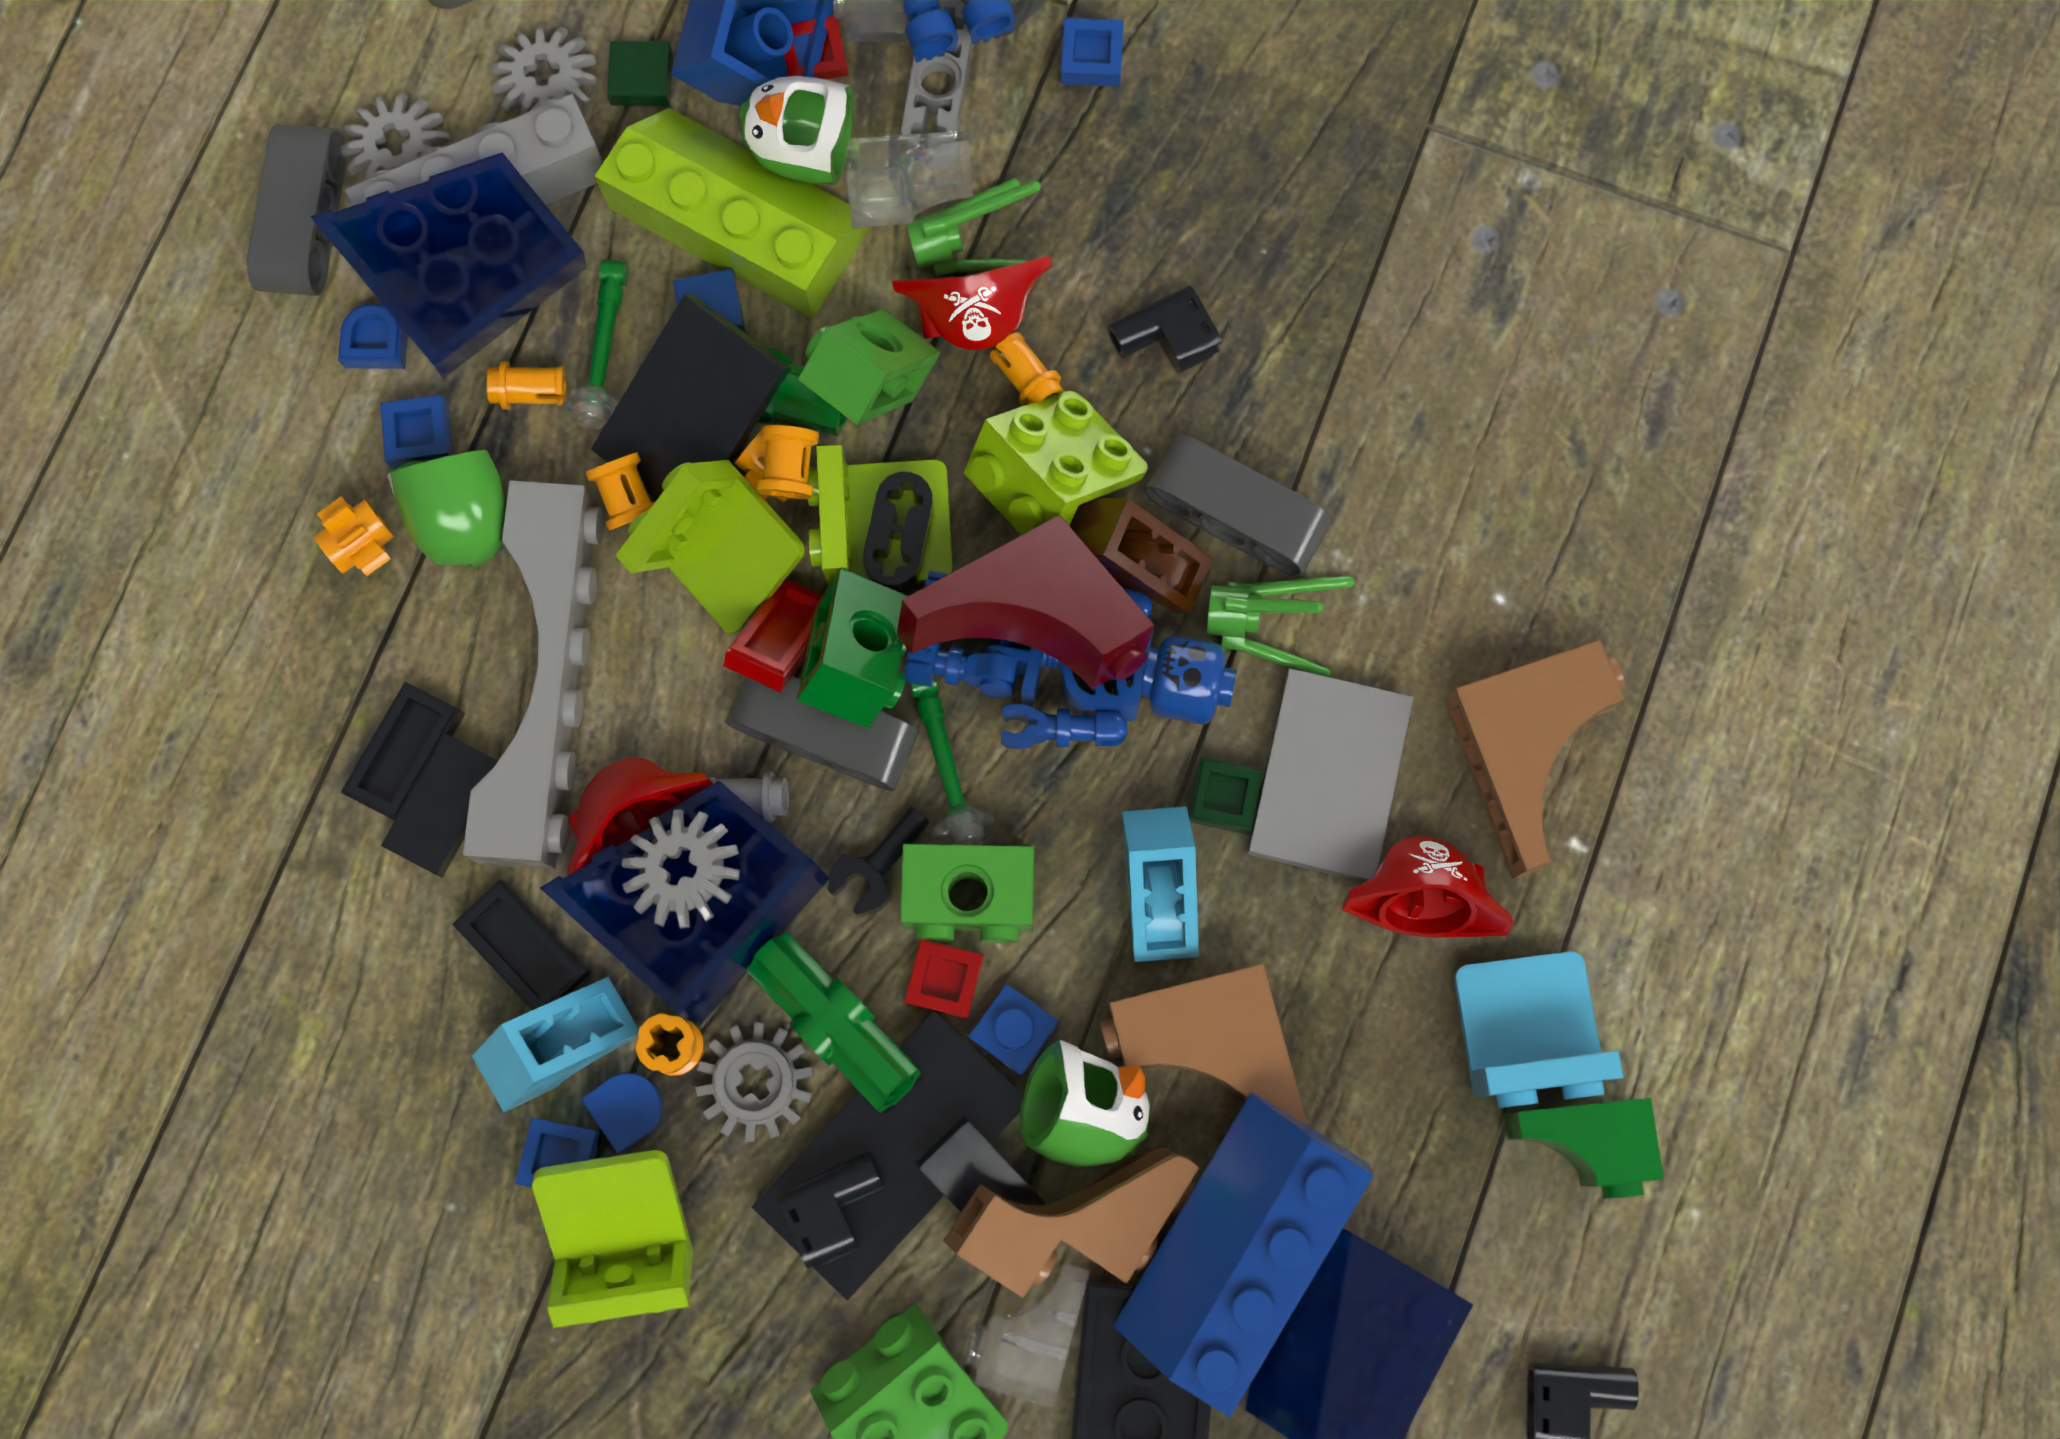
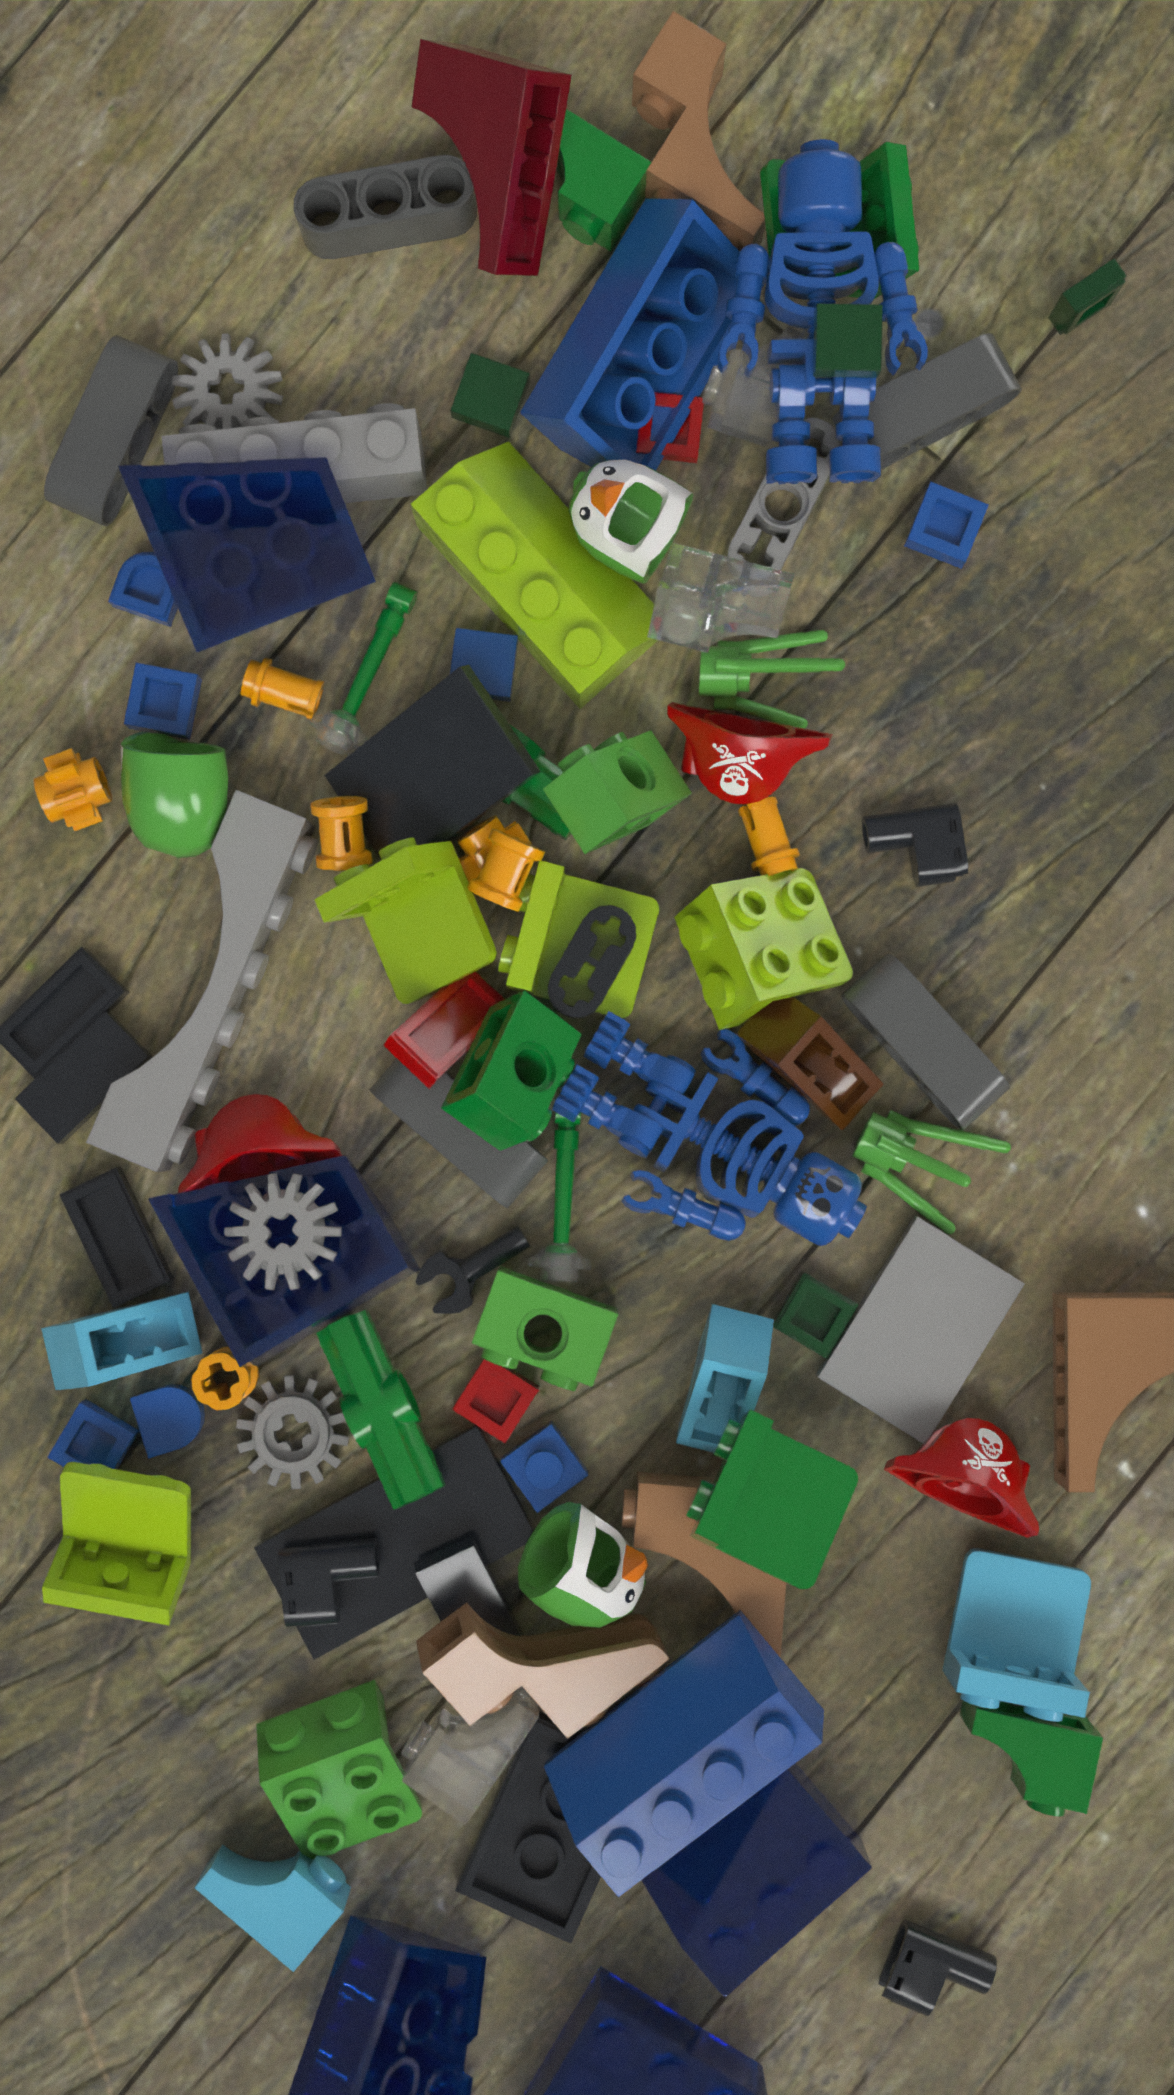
camera: 20 degrees right, 10 degrees up
(560, 56) = (416, 349): light grey gear -> none
(764, 795) = (379, 1170): light grey pin -> none
(1039, 594) = (707, 1081): dark red arch -> none
(1242, 969) = (772, 1501): none -> green bracket

